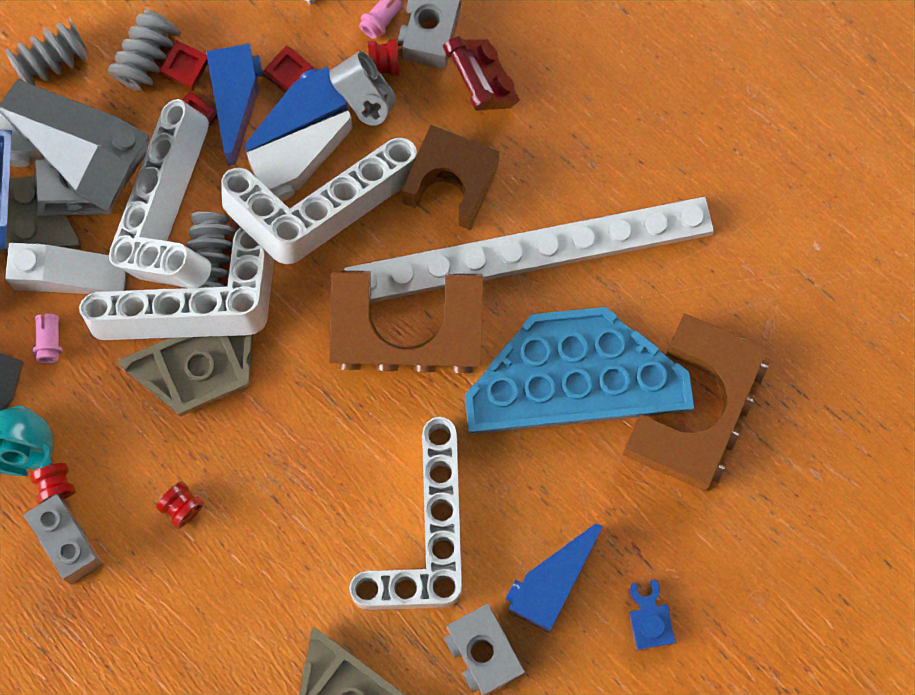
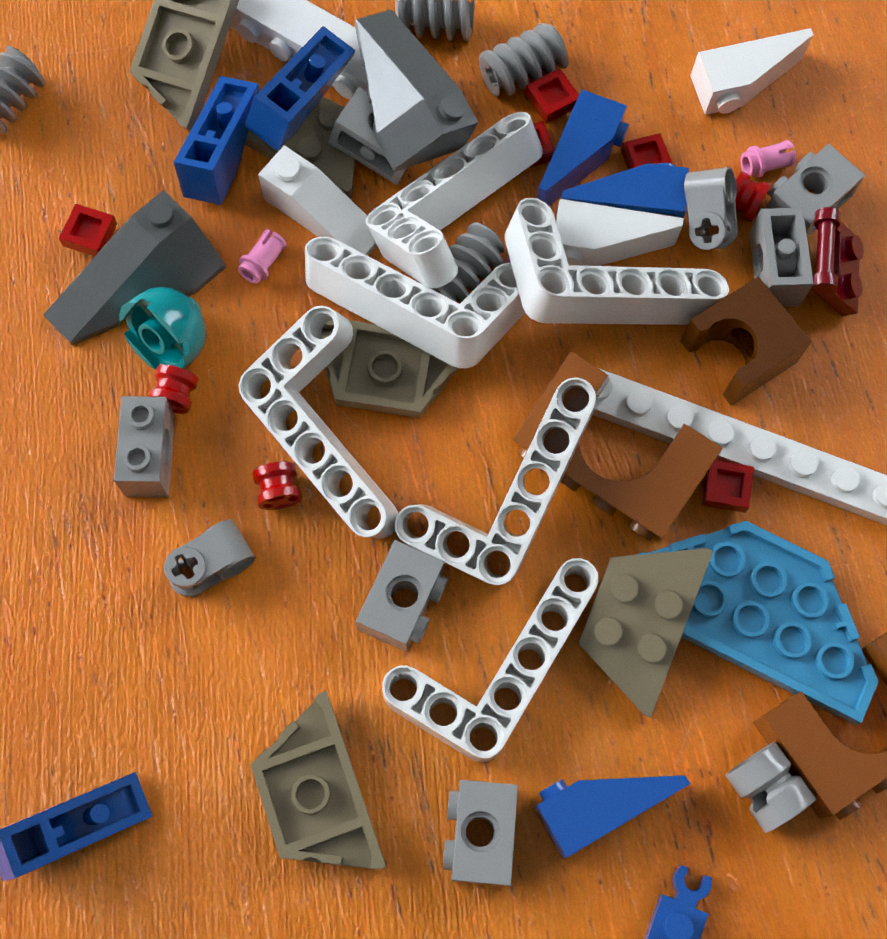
camera: 30 degrees right, 5 degrees down
(170, 583) = (212, 557): none -> light grey piece
(176, 446) = (310, 428): none -> white beam
(313, 505) = (402, 569): none -> light grey brick
(362, 403) = (518, 497): none -> white beam
(437, 94) = (782, 254): none -> light grey brick
(501, 432) = (642, 619): none -> dark tan wing
(504, 295) = (728, 486): none -> red plate
(658, 492) = (771, 787): none -> light grey wheel

